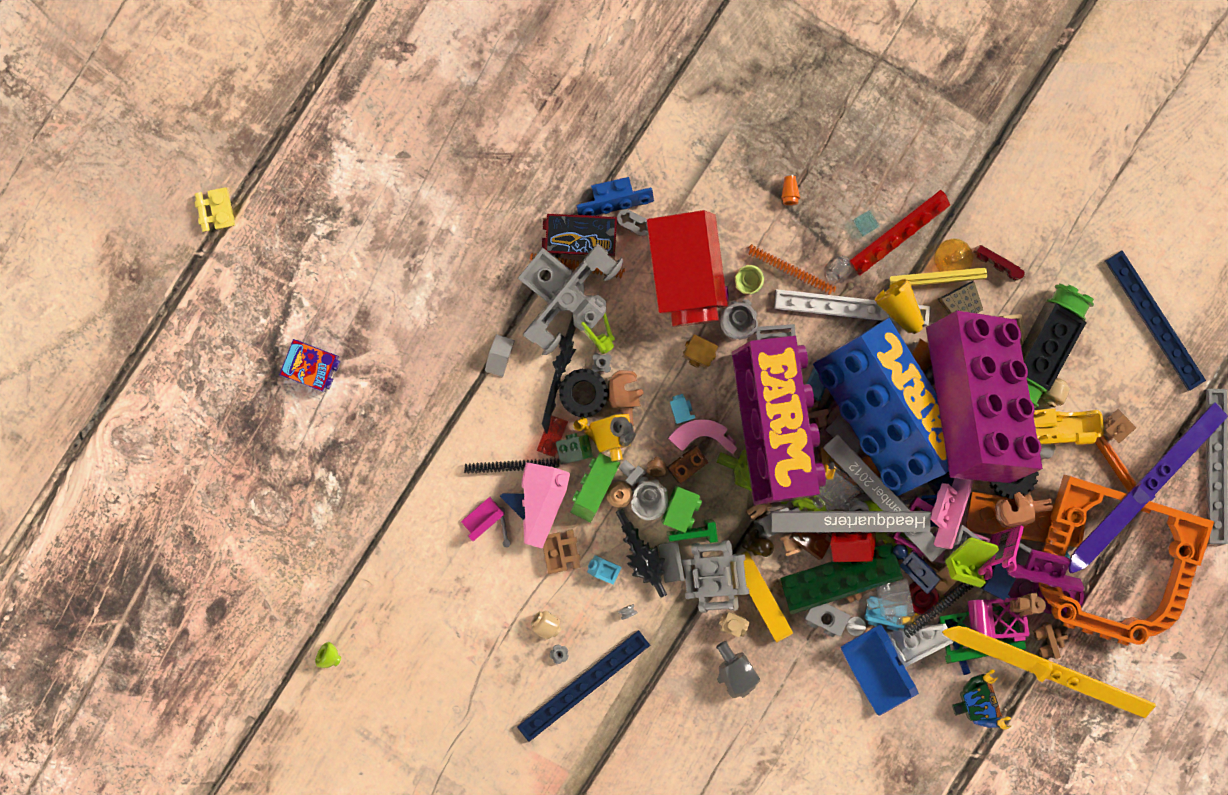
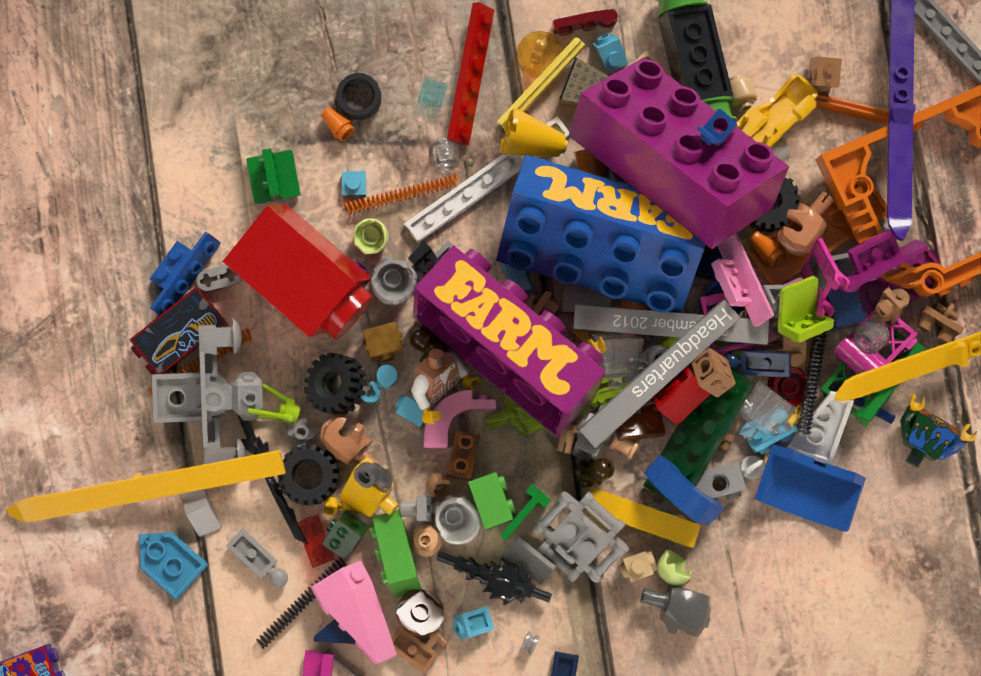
camera: 30 degrees left, 5 degrees down
(453, 370) = (169, 562): none -> dark azure tile
(480, 314) = (148, 487): none -> yellow piece
(508, 415) = (257, 558): none -> light grey plate
(578, 535) = (420, 612): none -> tile
(640, 343) = (321, 382): none -> black tyre
(681, 375) = (386, 378): none -> medium azure leg
(712, 402) = (436, 378): none -> torso
(722, 188) = (273, 176): none -> green bracket
(726, 374) = (424, 341): none -> dark brown animal
(752, 644) = (672, 570): none -> yellowish green hair
(767, 237) = (354, 183): none -> medium azure plate
(769, 319) = (421, 256): none -> black tile
(800, 604) = (682, 492): none -> blue arch
(804, 186) = (346, 83): none -> black tyre
(883, 550) = (713, 372): none -> medium nougat head
(984, 502) = (766, 248): none -> orange cone
(998, 295) = (610, 52): none -> medium azure bracket
(999, 613) = (871, 336): none -> clear head
(1011, 408) = (708, 132): none -> blue bracket

